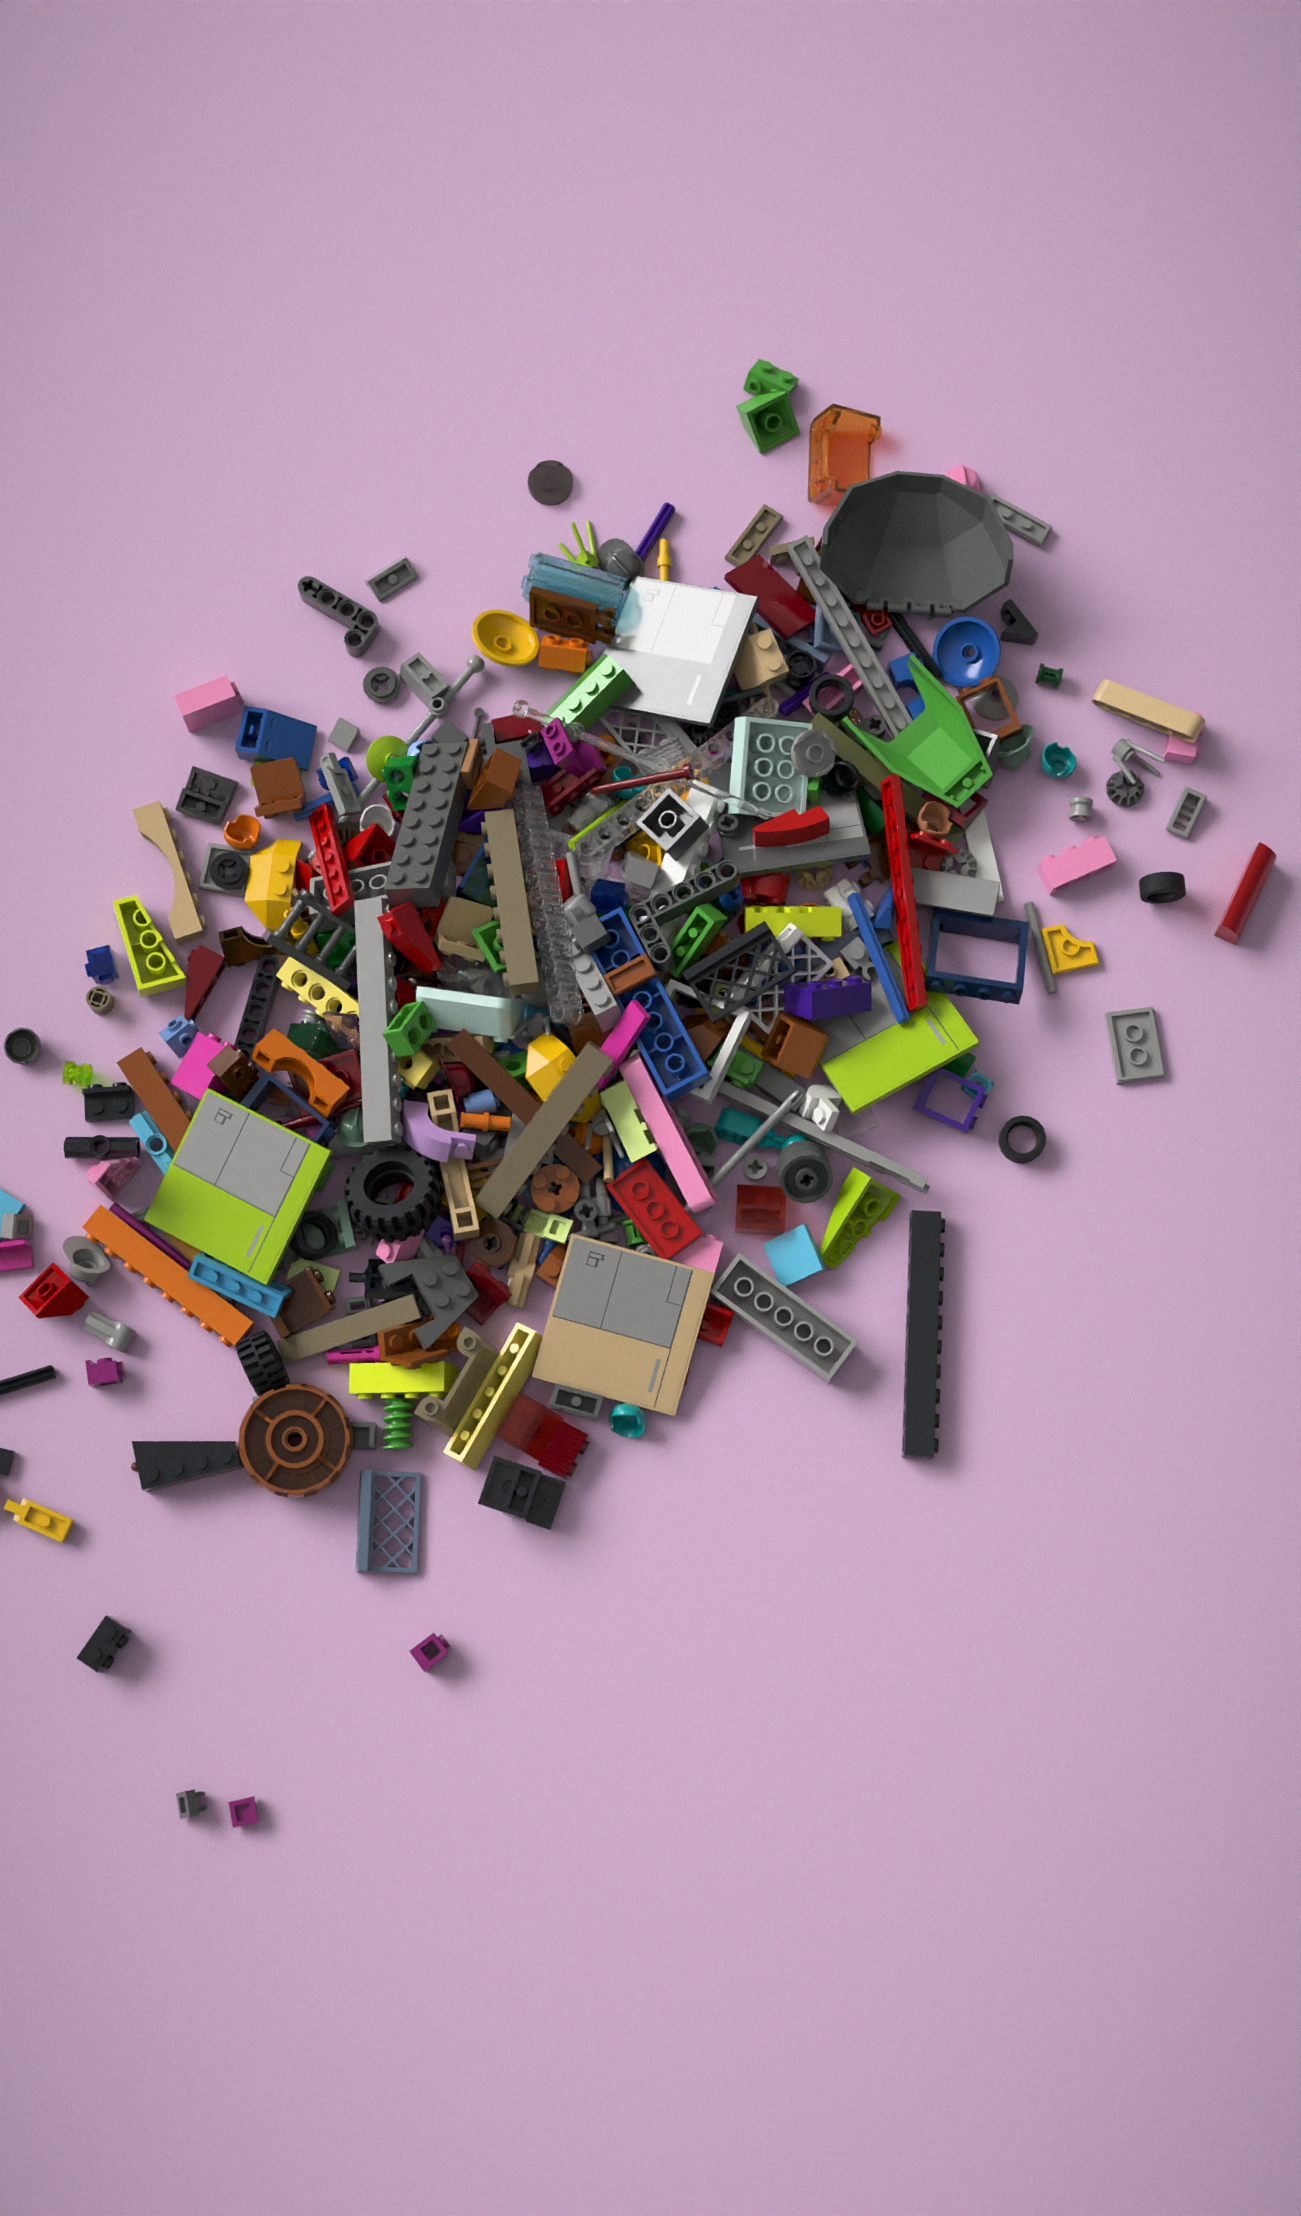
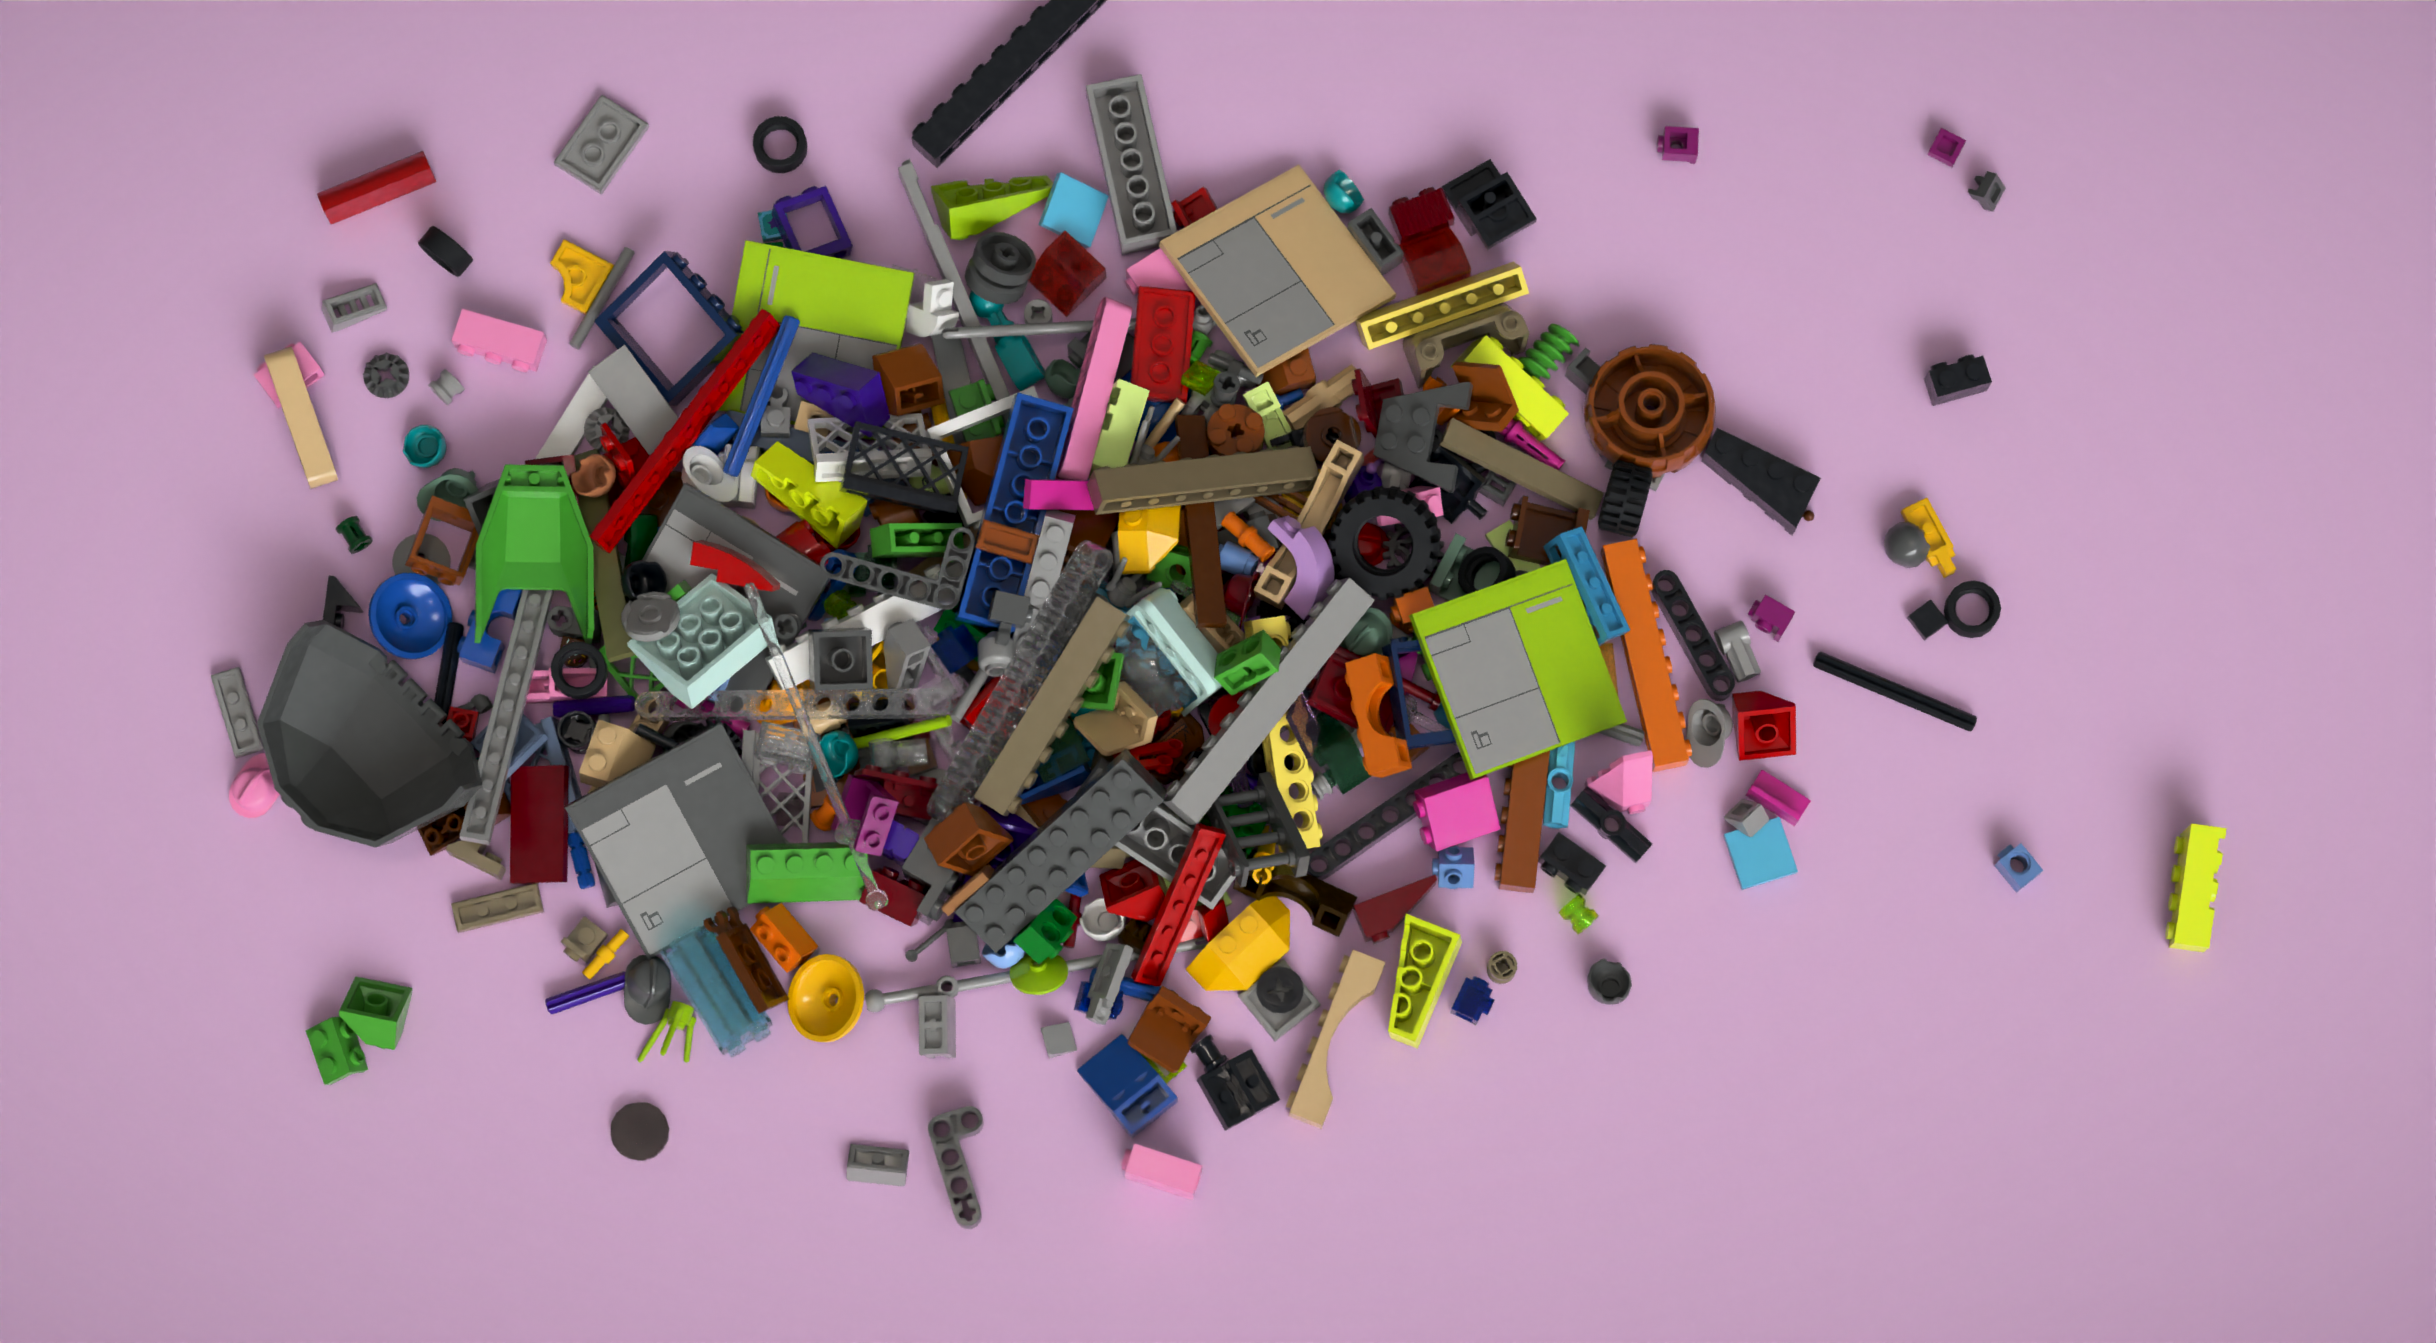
camera: 140 degrees left, 0 degrees up
(51, 1496) = (1906, 545): none -> dark grey hair
(136, 1311) = (1692, 649): none -> black beam
(150, 1235) = (1631, 701): magenta bar -> none
(234, 1072) = (1436, 770): reddish brown brick -> none
(242, 800) = (1208, 1053): none -> black bush
(242, 832) = (1235, 1018): orange hair -> none
(338, 1170) = (1409, 604): none -> orange brick
(366, 1521) = (1642, 300): sand blue fence -> none
(381, 675) = (969, 1051): dark grey gear -> none
(409, 936) = (1174, 750): red slope -> none
(532, 743) = (898, 850): black bush -> none
(608, 1205) = (1199, 377): none -> clear neon green plate
(684, 558) = (583, 940): none -> dark tan bracket
(685, 772) = (828, 721): dark red bar -> none
(839, 452) = (347, 909): clear orange windscreen -> none
(864, 878) = (705, 473): none -> white piece
(1125, 751) = (354, 404): light grey plant -> none

